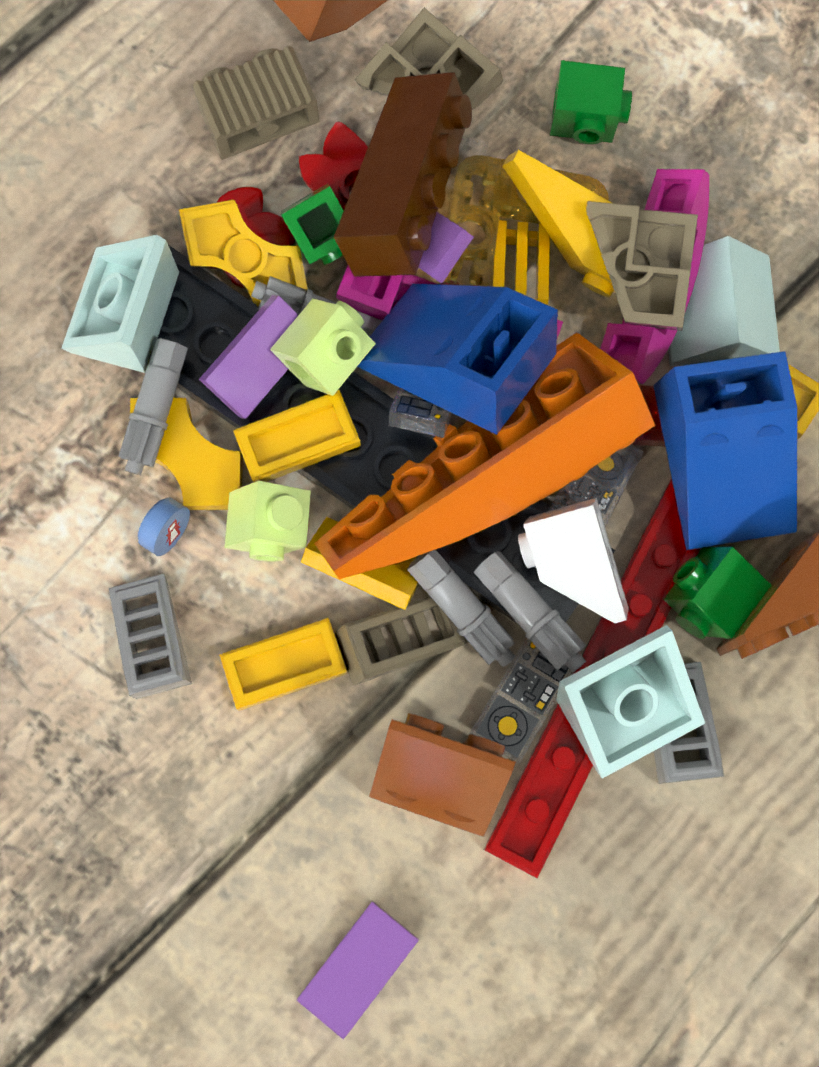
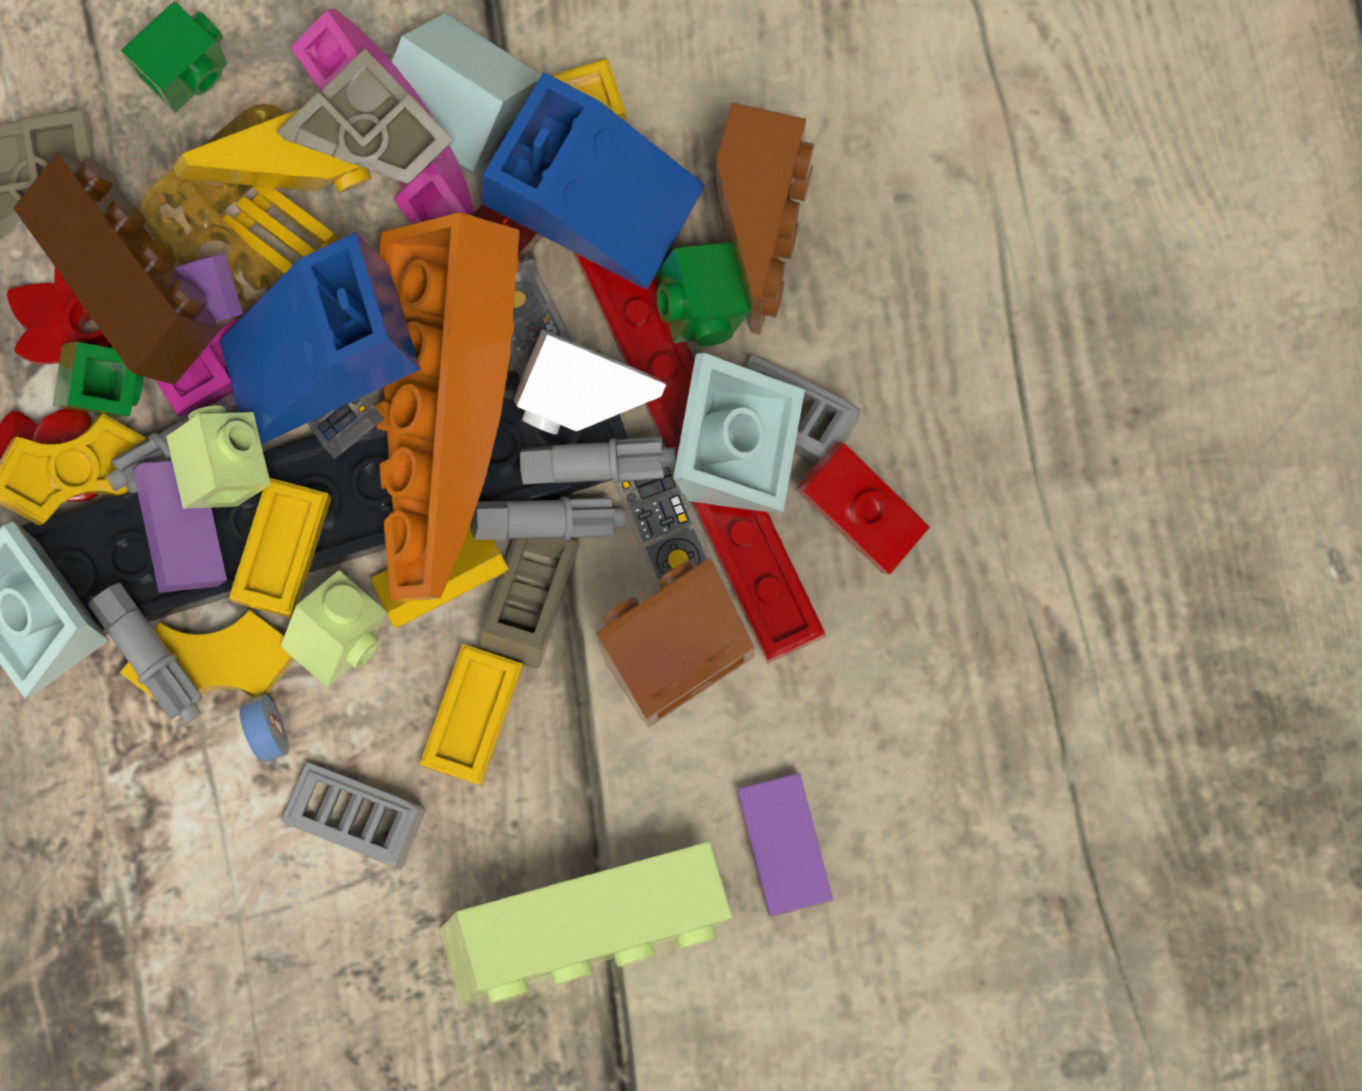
camera: 45 degrees left, 0 degrees up
(187, 872) = (585, 922): none -> yellowish green wedge
(652, 835) = (862, 507): none -> red plate

